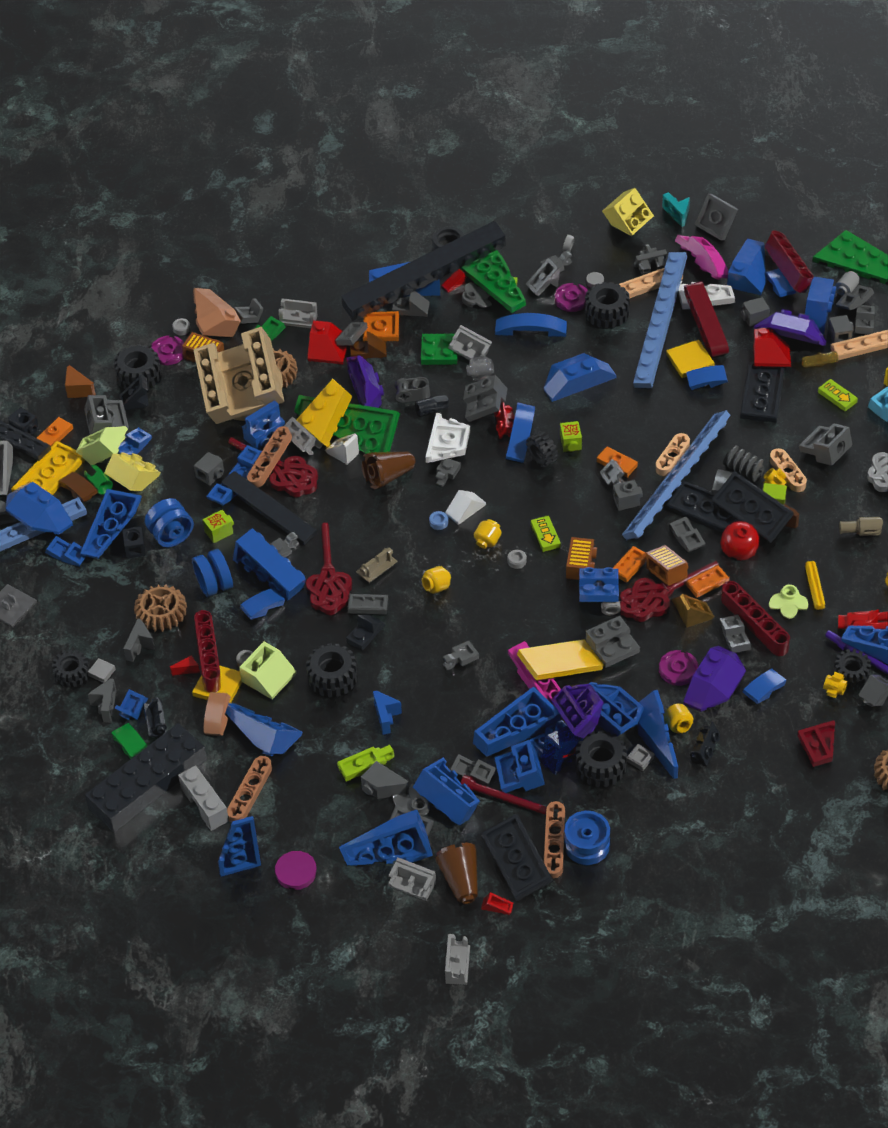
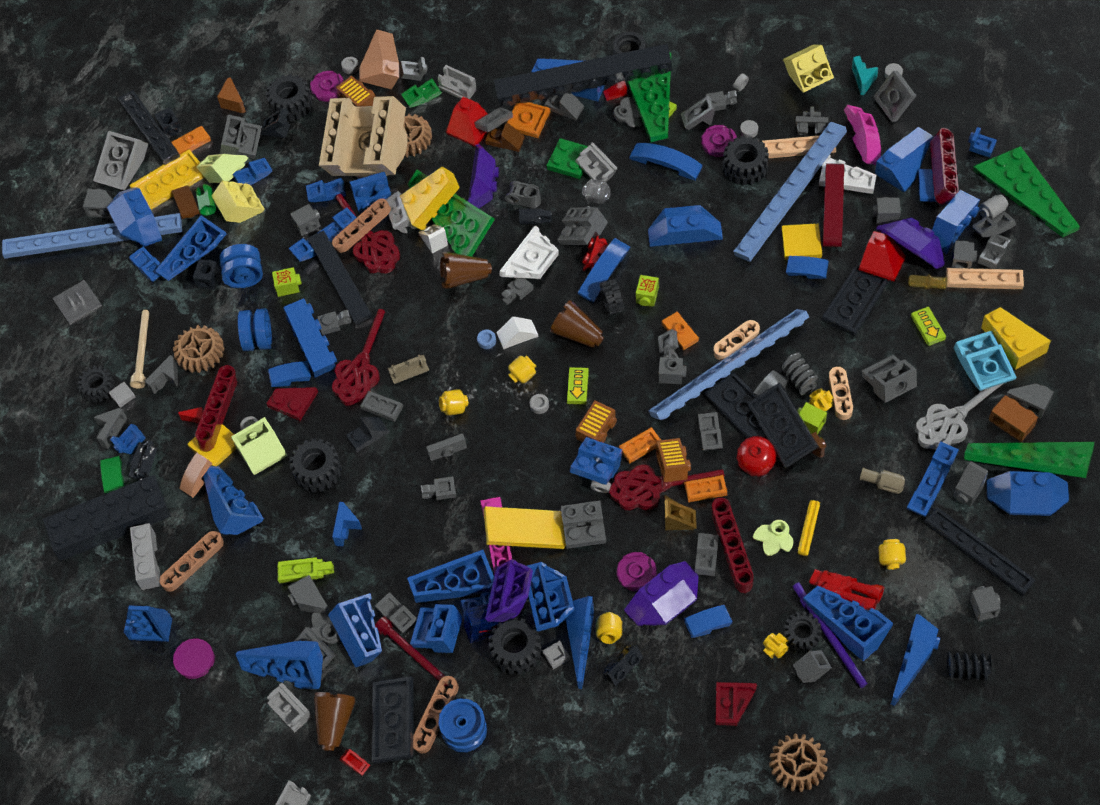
camera: 25 degrees right, 10 degrees up
(111, 651) = (137, 379): none -> tan piece
(212, 441) = (323, 191): none -> blue slope
(276, 626) = (292, 401): none -> dark red wing
(449, 618) = (446, 447): none -> dark grey plate
(522, 483) = (577, 326): none -> reddish brown cone
(699, 199) = (893, 67): none -> light grey tile
(811, 237) = (981, 144): none -> blue bracket

